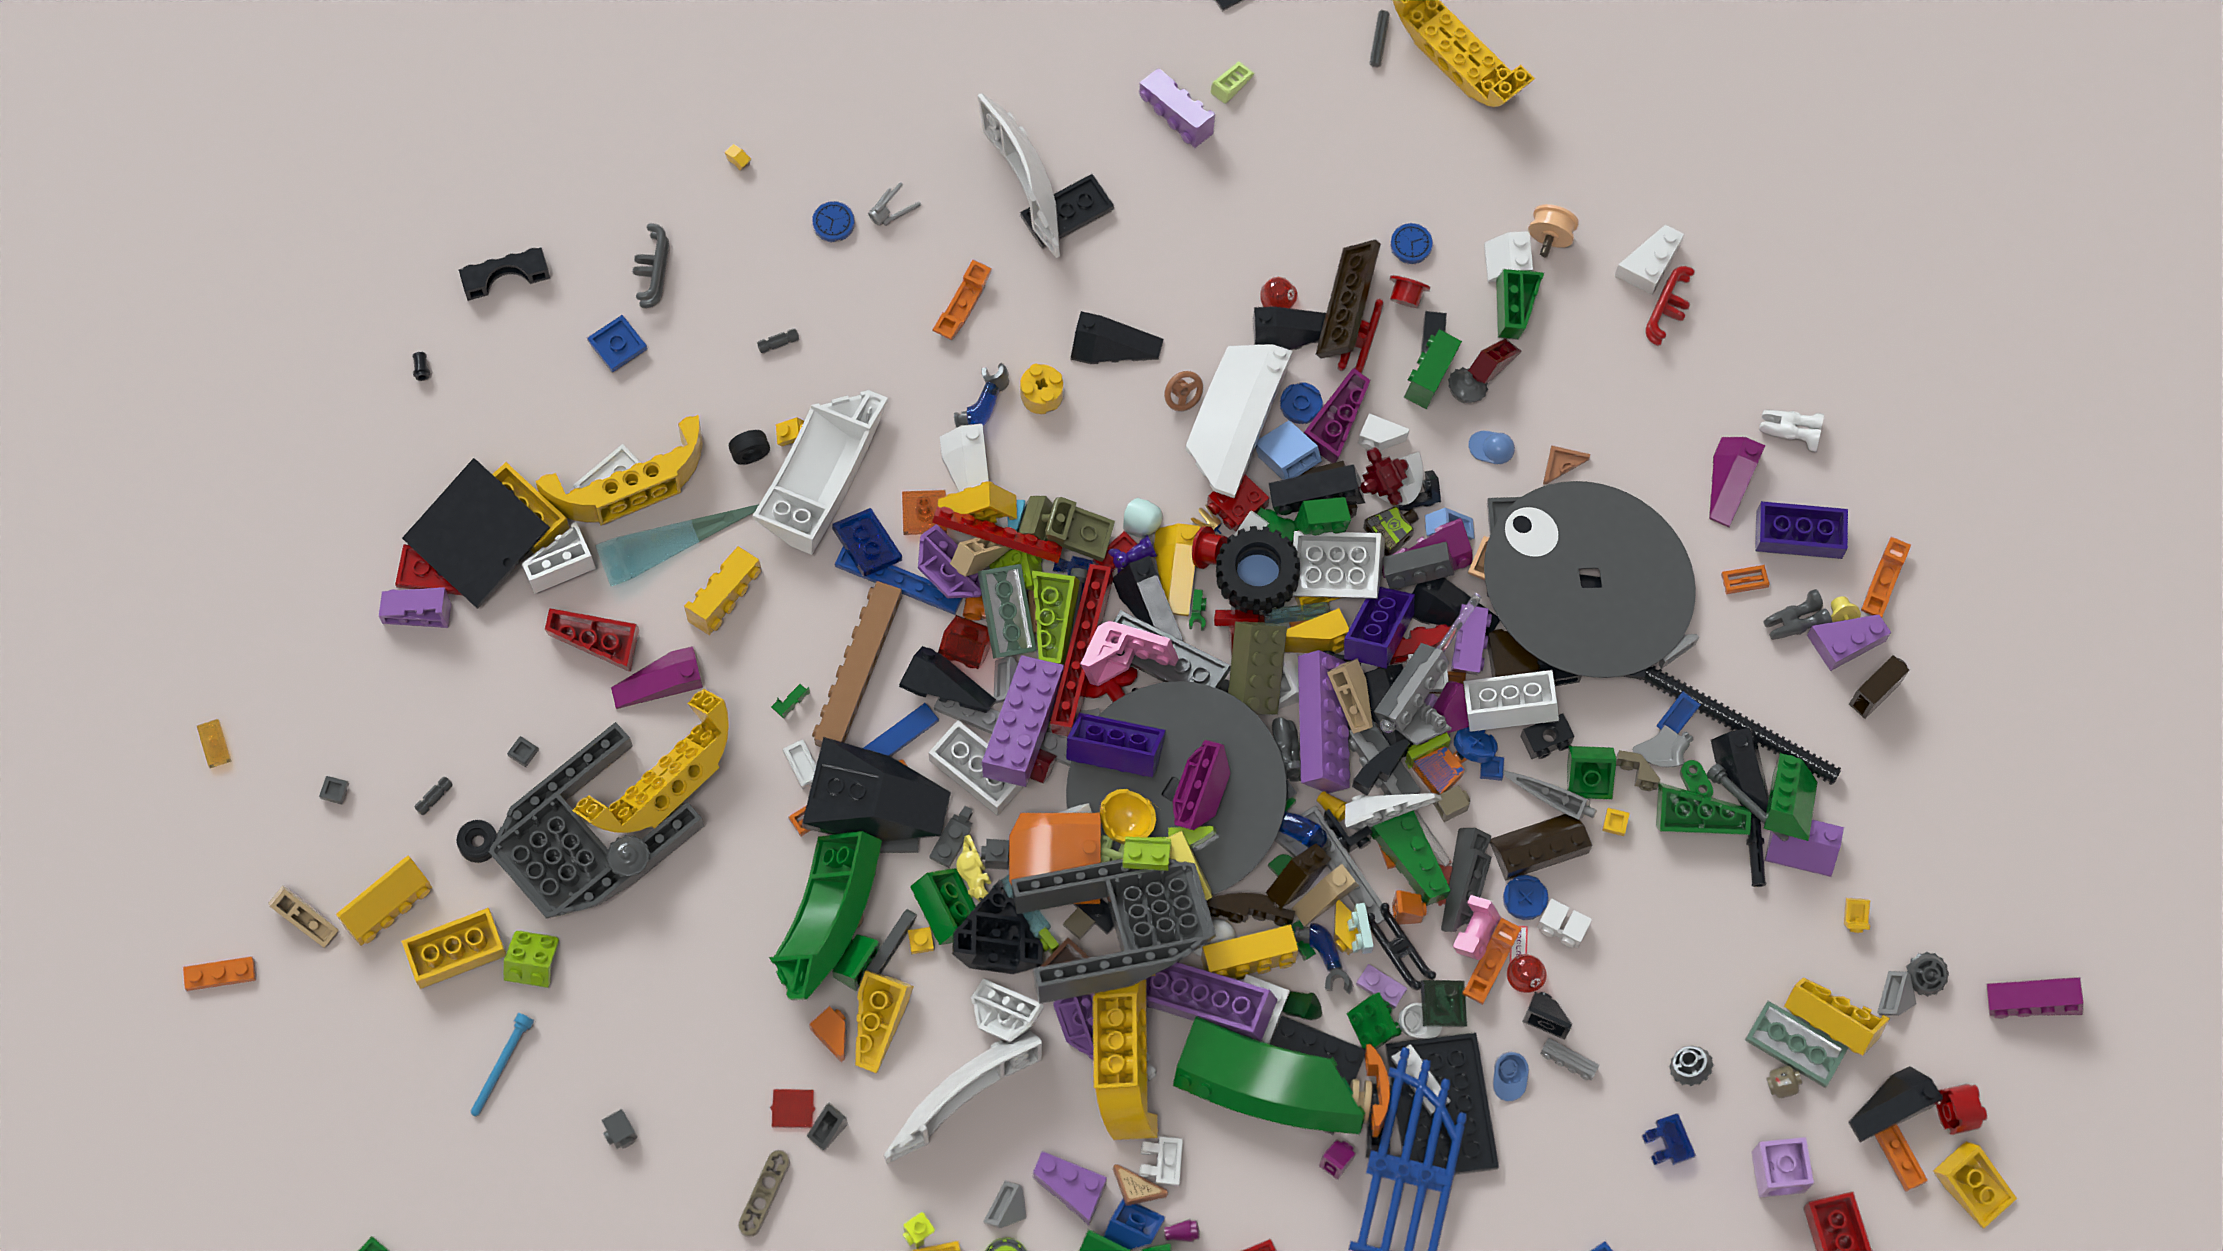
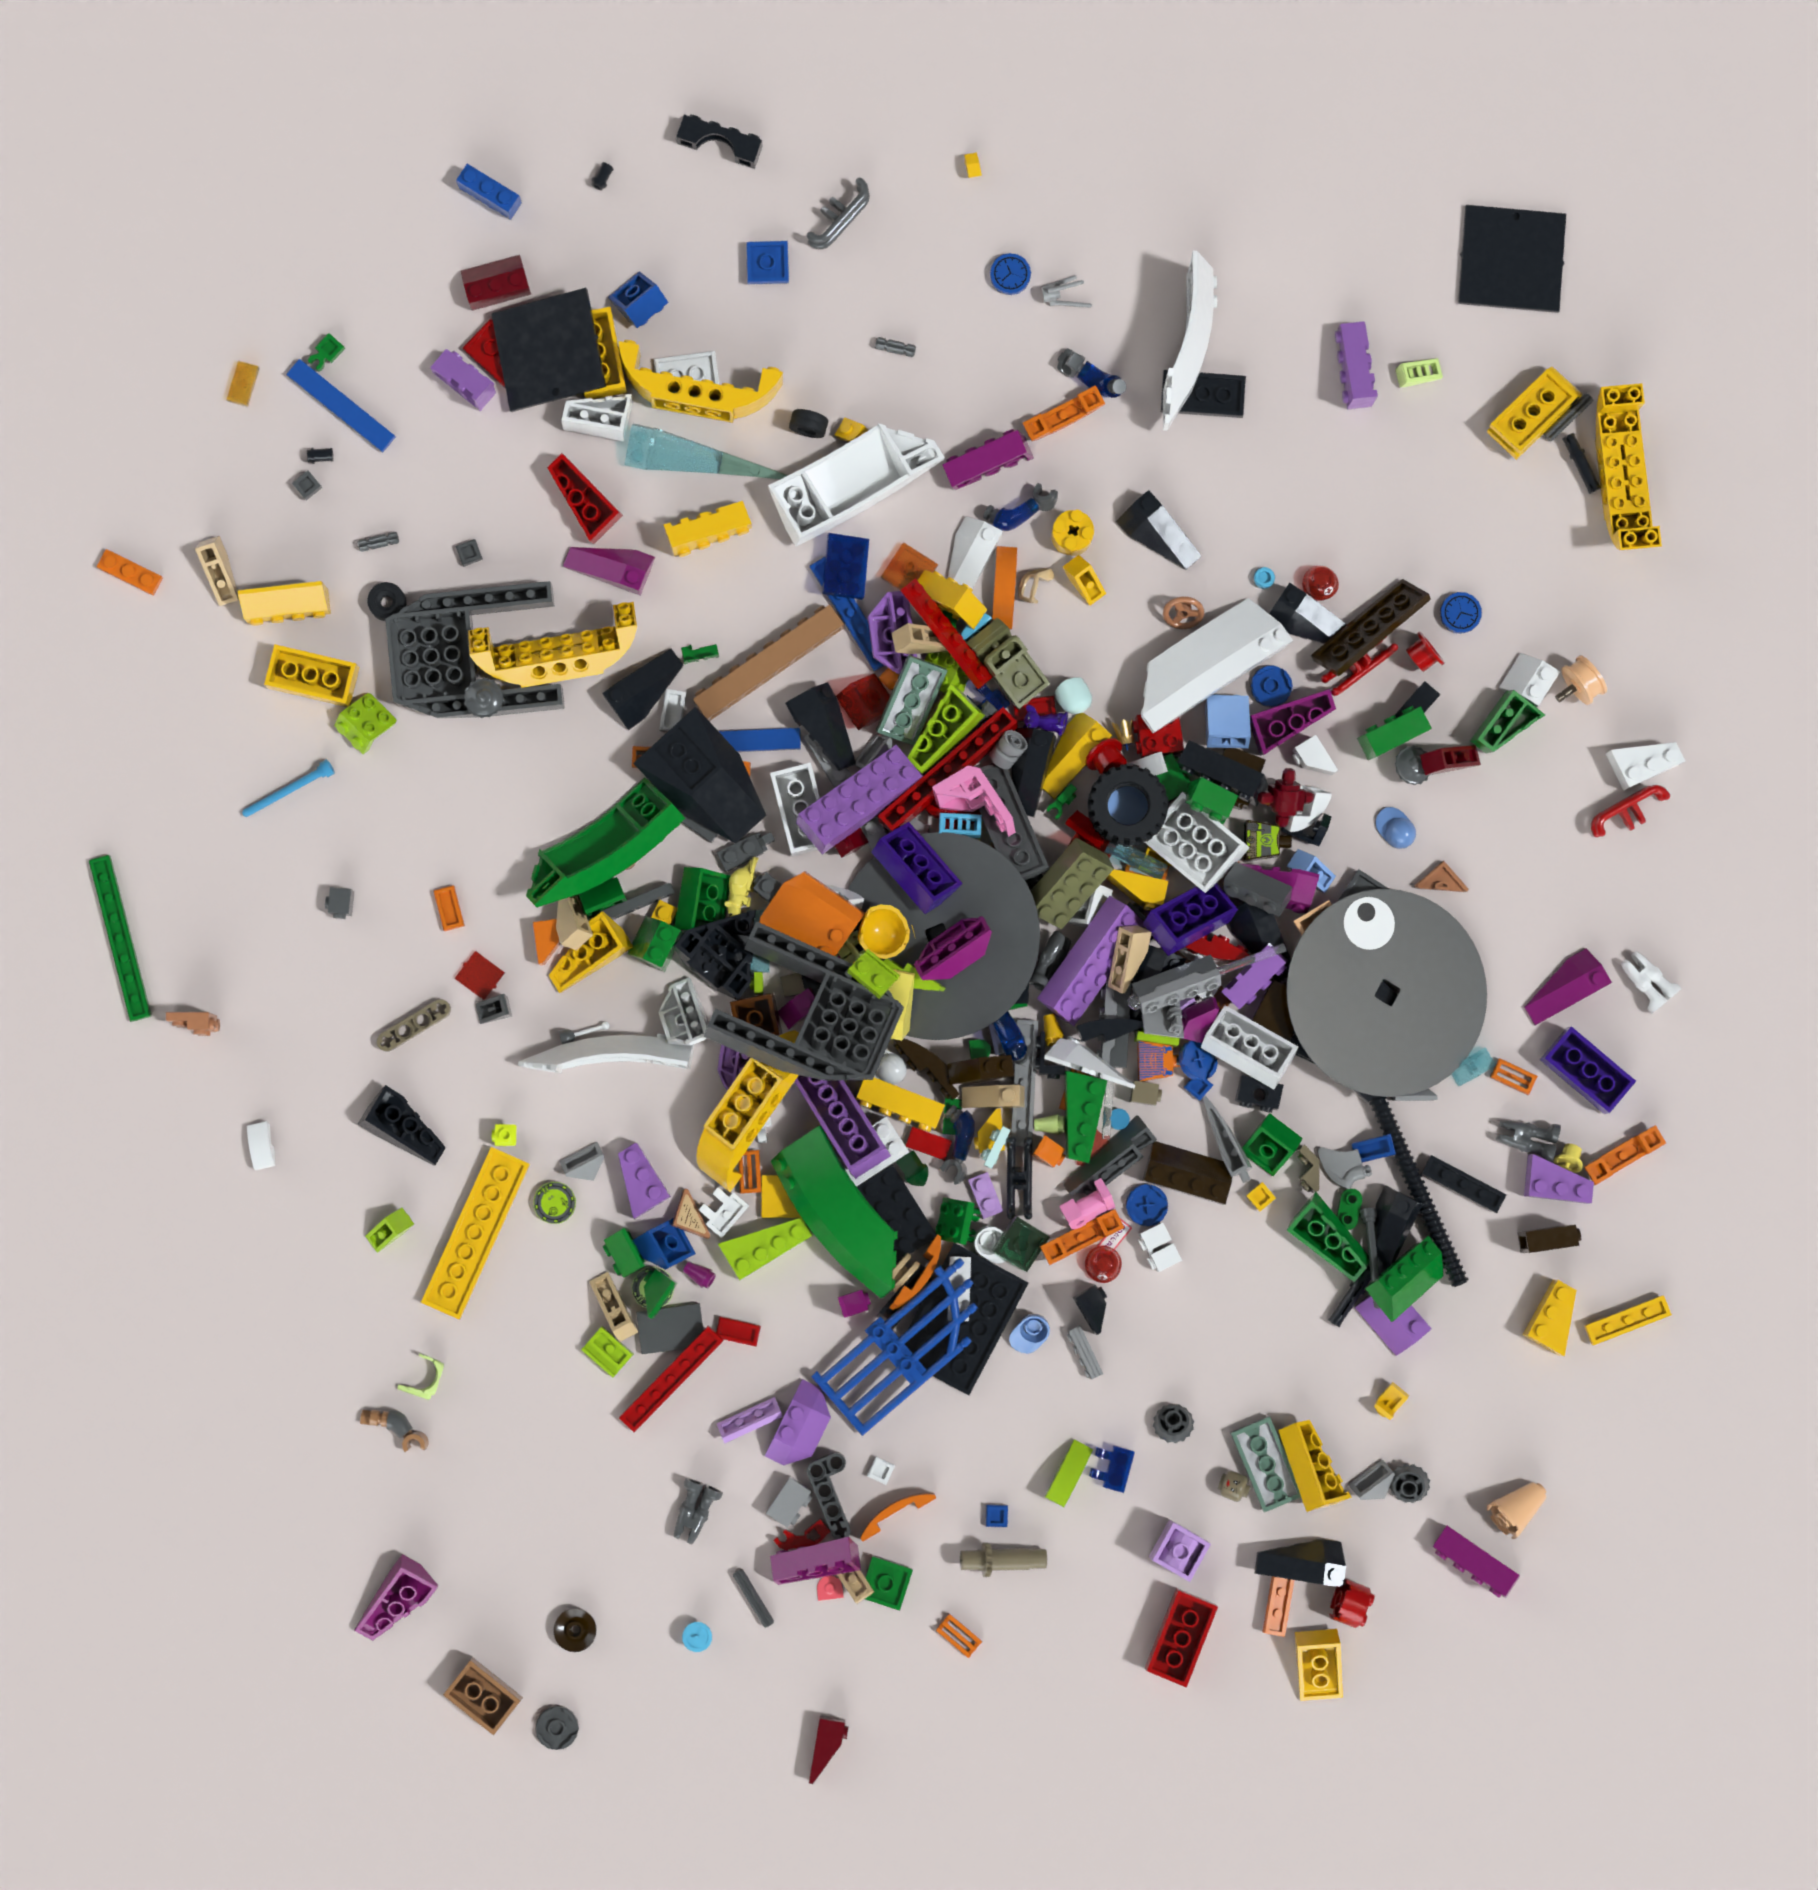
camera: 30 degrees right, 15 degrees up
(273, 664) = (328, 350): none -> green plate
(317, 703) = (341, 405): none -> blue tile
(328, 440) = (488, 191): none -> blue brick
(328, 757) = (320, 455): none -> black pin
(387, 511) = (495, 282): none -> dark red slope
(525, 444) = (638, 299): none -> blue slope
(722, 1068) = (449, 908): none -> orange tile
(761, 765) = (638, 692): none -> black wedge
(845, 999) = (572, 923): none -> tan slope
(911, 1104) = (568, 1036): none -> hinge
(925, 376) = (987, 459): none -> magenta wedge
(931, 967) = (655, 943): none -> green slope
(939, 257) = (1108, 385): none -> piece
(1014, 467) = (1005, 584): none -> orange slope
(1040, 442) = (1042, 574): none -> tan piece
(1079, 419) = (1084, 579): none -> yellow slope
(1100, 935) = (797, 1008): none -> magenta slope
(1120, 596) = (1008, 749): none -> light grey wheel
(1127, 676) = (965, 817): none -> medium azure slope
(1172, 1126) = (749, 1167): none -> orange tile
(1203, 1117) = (776, 1200): none -> yellow tile
(1218, 1170) = (759, 1248): none -> lime wedge
(1228, 322) = (1264, 578): none -> medium azure tile
(1299, 976) = (928, 1143): none -> red tile
(1349, 51) = (1548, 386): none -> yellow hinge
(1393, 882) = (1051, 1124): none -> yellowish green cone
(1417, 65) = (1581, 463): none -> black pin
(1447, 840) = (1120, 1119): none -> dark azure tile
(1636, 1174) = (1068, 1473): none -> lime slope
(1706, 594) = (1473, 1067): none -> clear light blue slope
(1774, 693) = (1463, 1184): none -> black plate
(1934, 751) = (1553, 1318): none -> yellow wedge
(1995, 710) = (1627, 1320): none -> yellow plate
(2032, 930) = (1517, 1508): none -> light nougat cone

